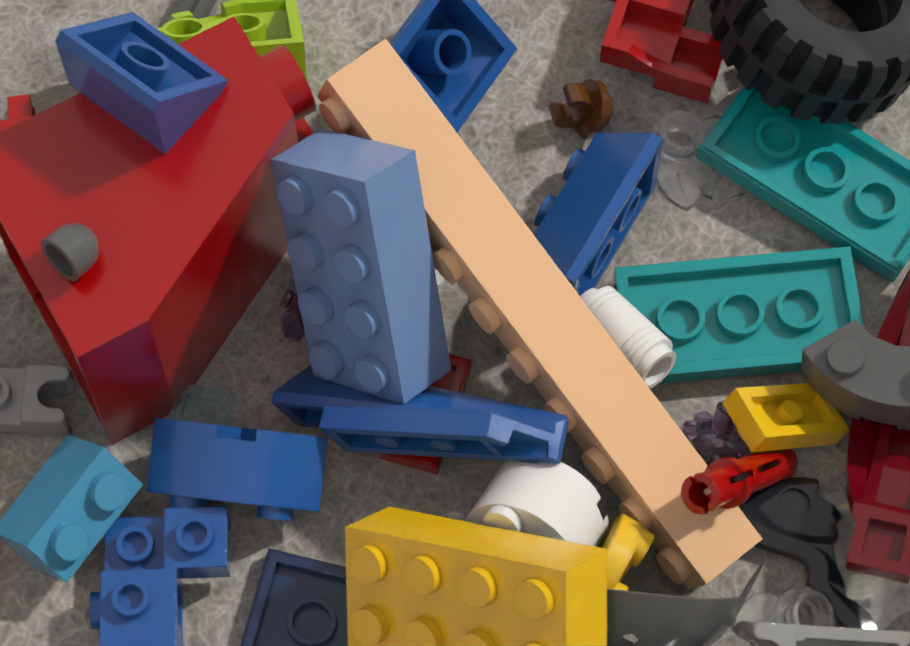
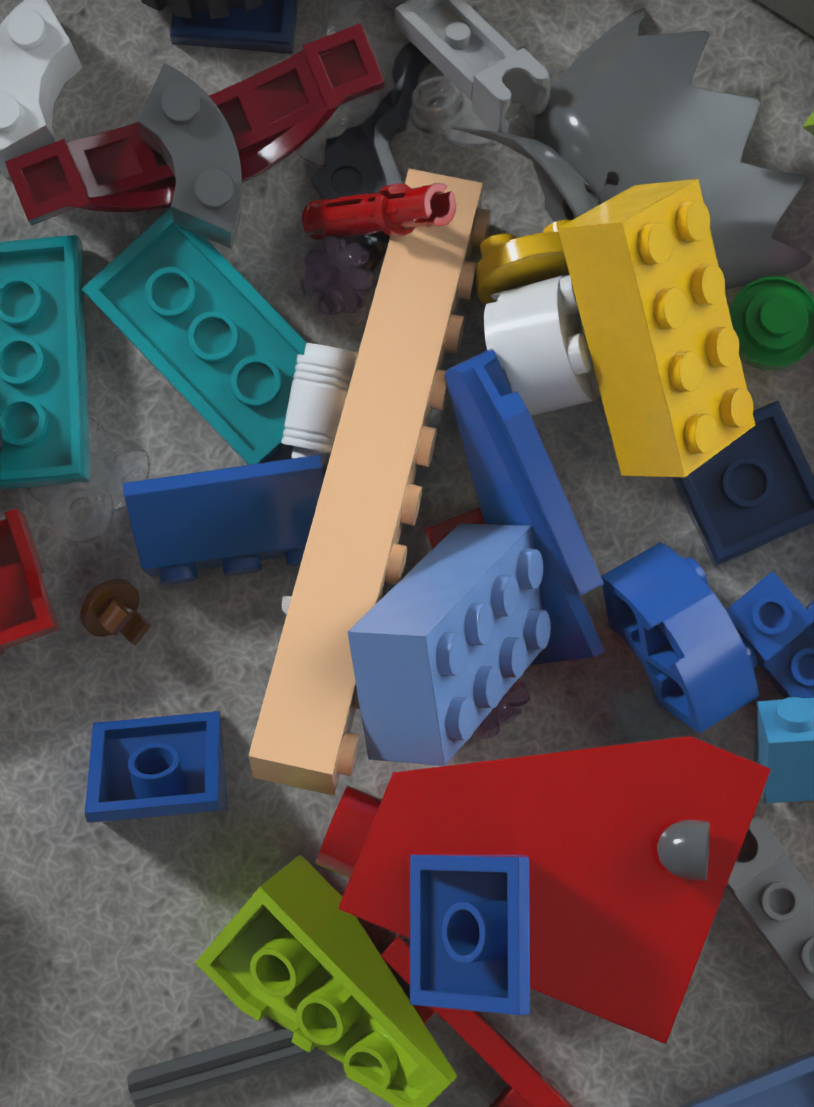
camera: 125 degrees left, 15 degrees up
(784, 417) = (288, 228): yellow plate -> none

